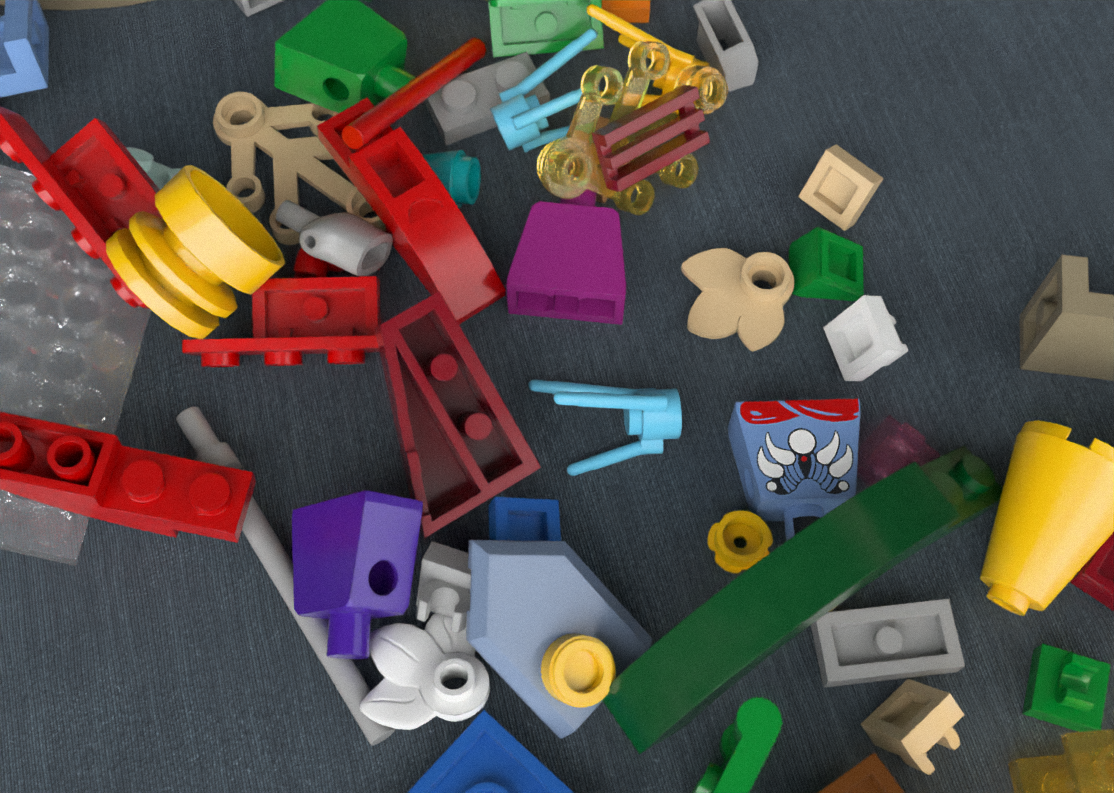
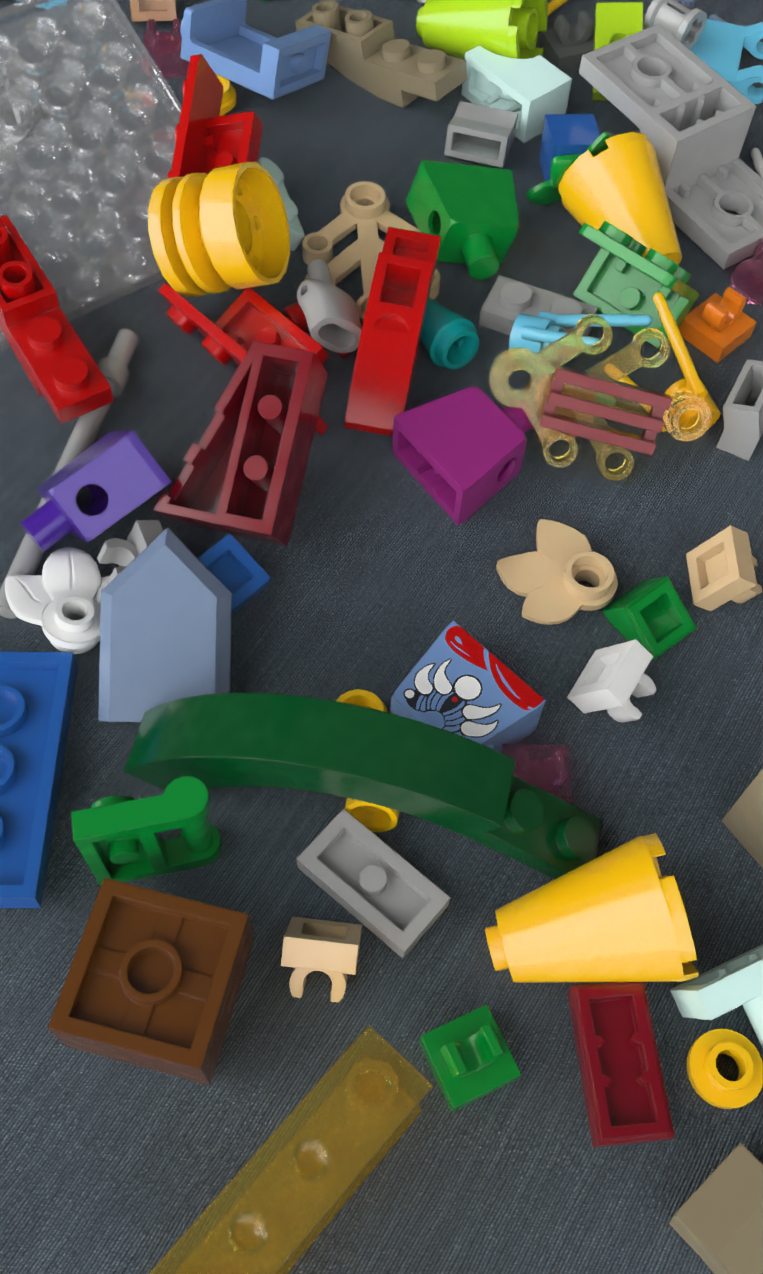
camera: 45 degrees right, 5 degrees down
(412, 94) = (479, 260): red bar -> none
(578, 670) = (145, 678): yellow tile -> none
(647, 413) = (395, 583): medium azure plant -> none

